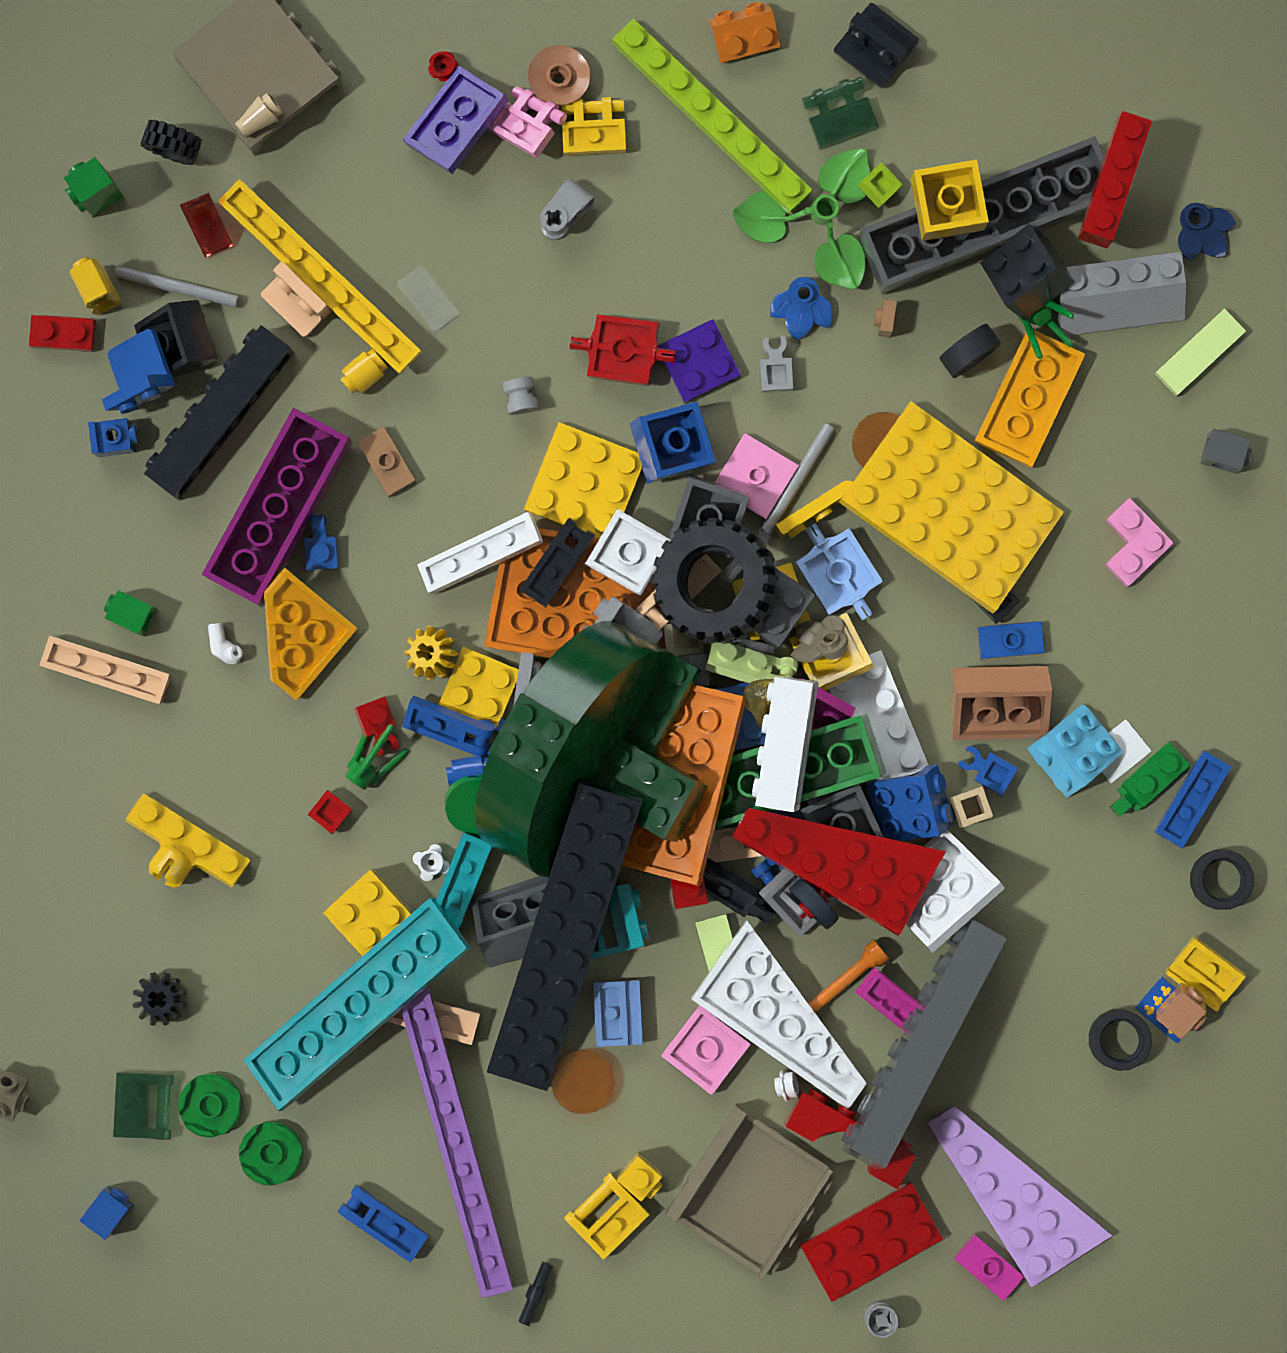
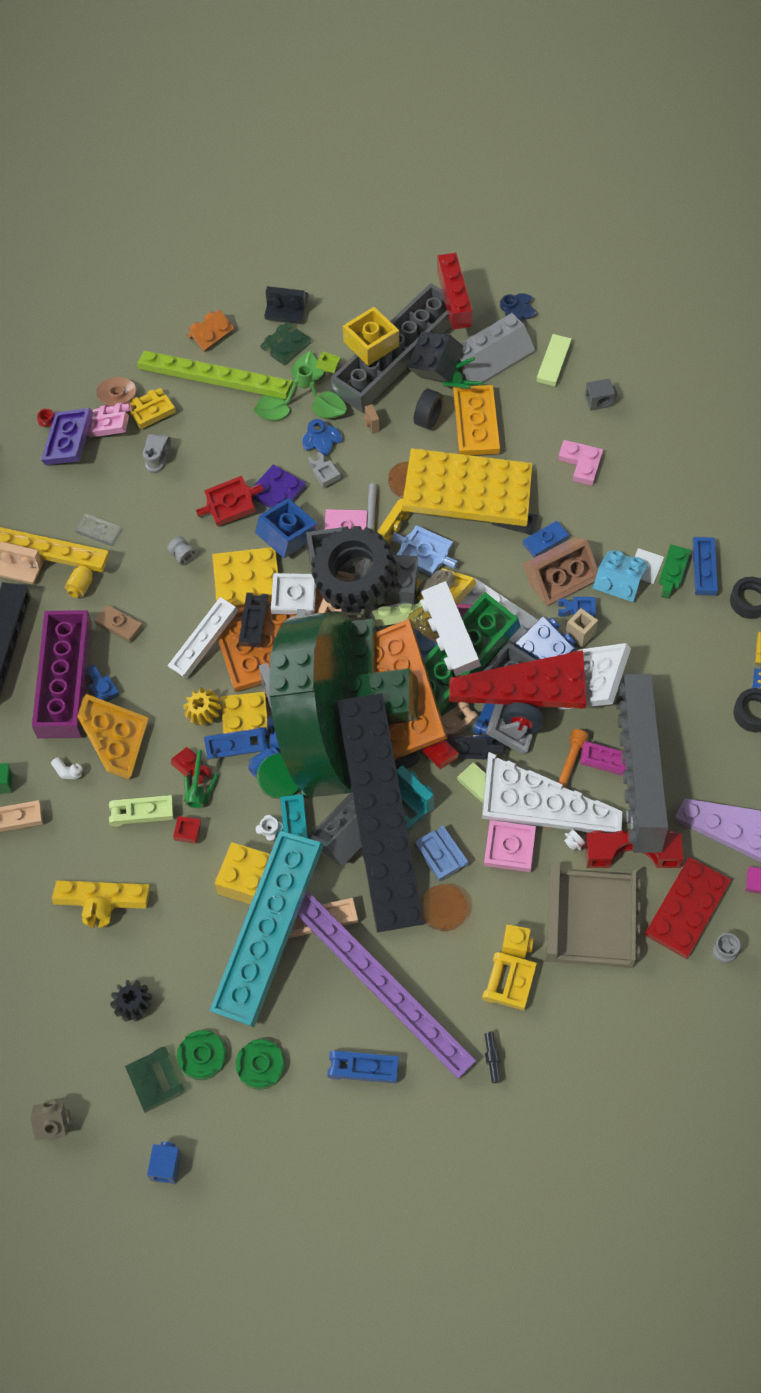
camera: 30 degrees left, 25 degrees down
(288, 754) = (141, 810): none -> yellowish green plate

